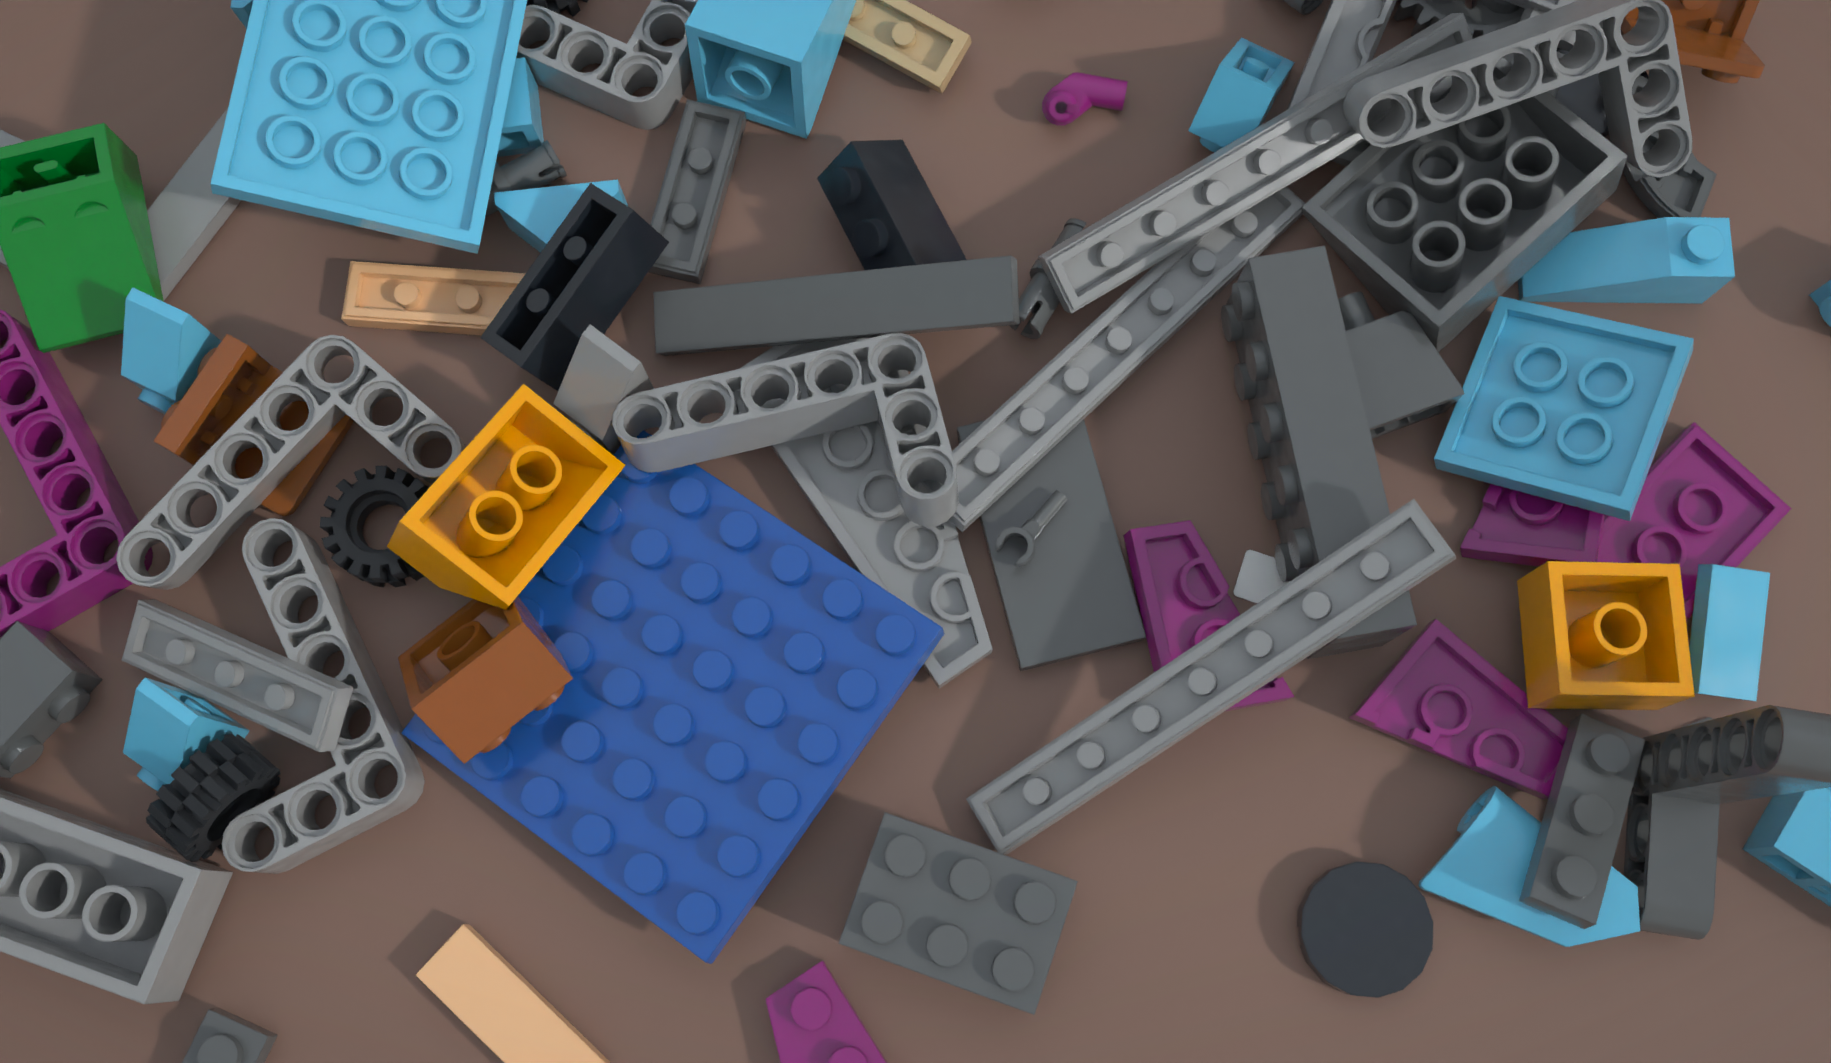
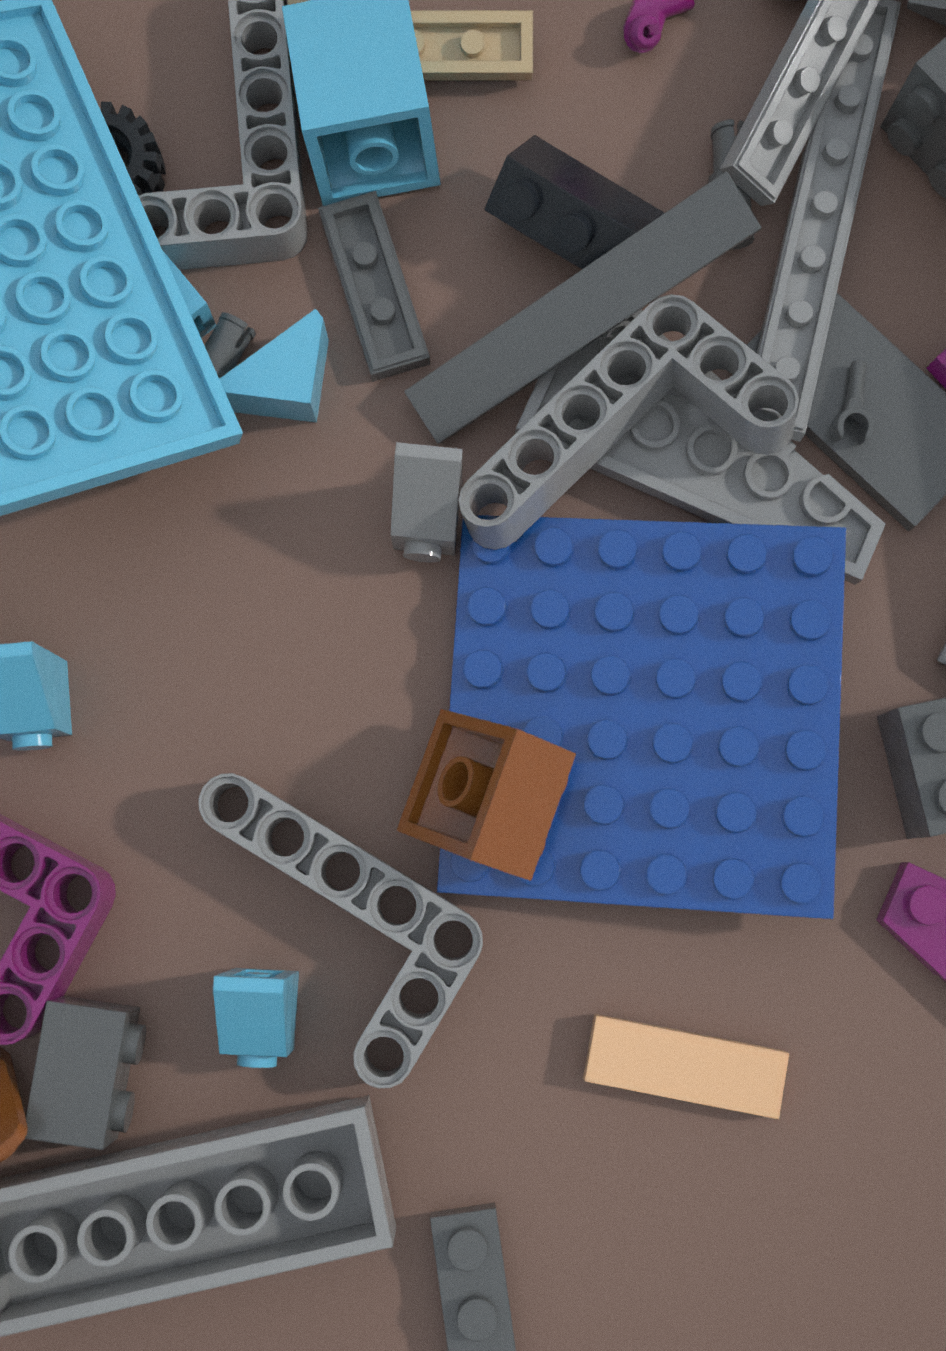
camera: 35 degrees left, 5 degrees up
(210, 795) = (322, 1042): black tyre -> none
(225, 387) = (136, 712): dark orange bracket -> none
(237, 675) = (270, 928): light grey tile -> none
(281, 451) = (177, 711): light grey beam -> none
(349, 516) = (272, 707): black tyre -> none
(425, 297) = (214, 508): light nougat tile -> none
(505, 502) = (412, 642): light orange slope -> none
(575, 282) = (341, 423): black brick -> none

